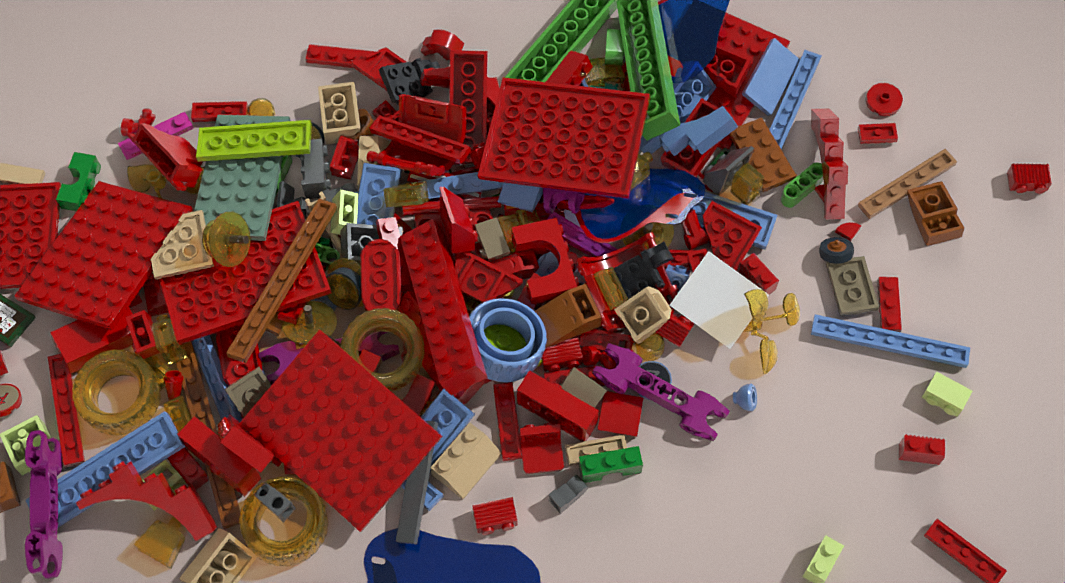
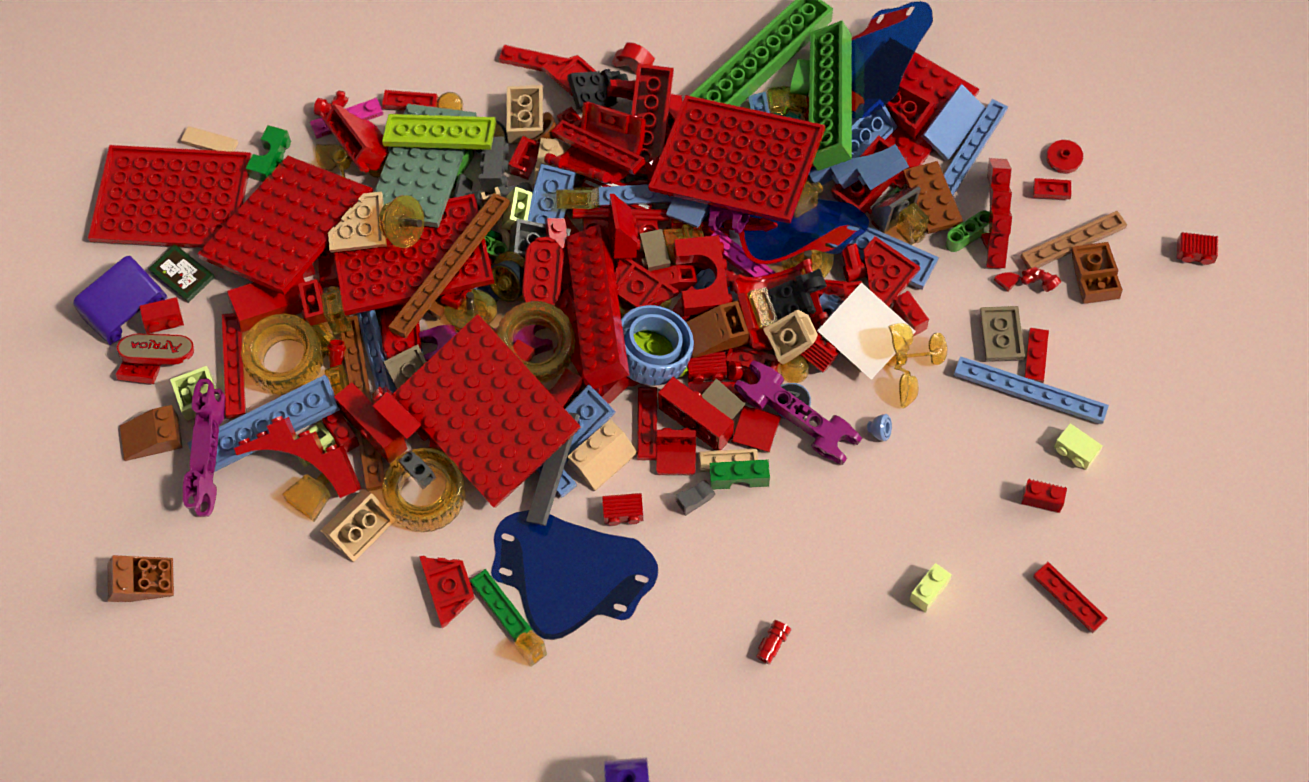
camera: 10 degrees right, 0 degrees up
(571, 69) = (756, 95): red brick -> none
(836, 250) = (991, 297): black wheel -> none
(890, 227) = (1034, 274): none -> red arm

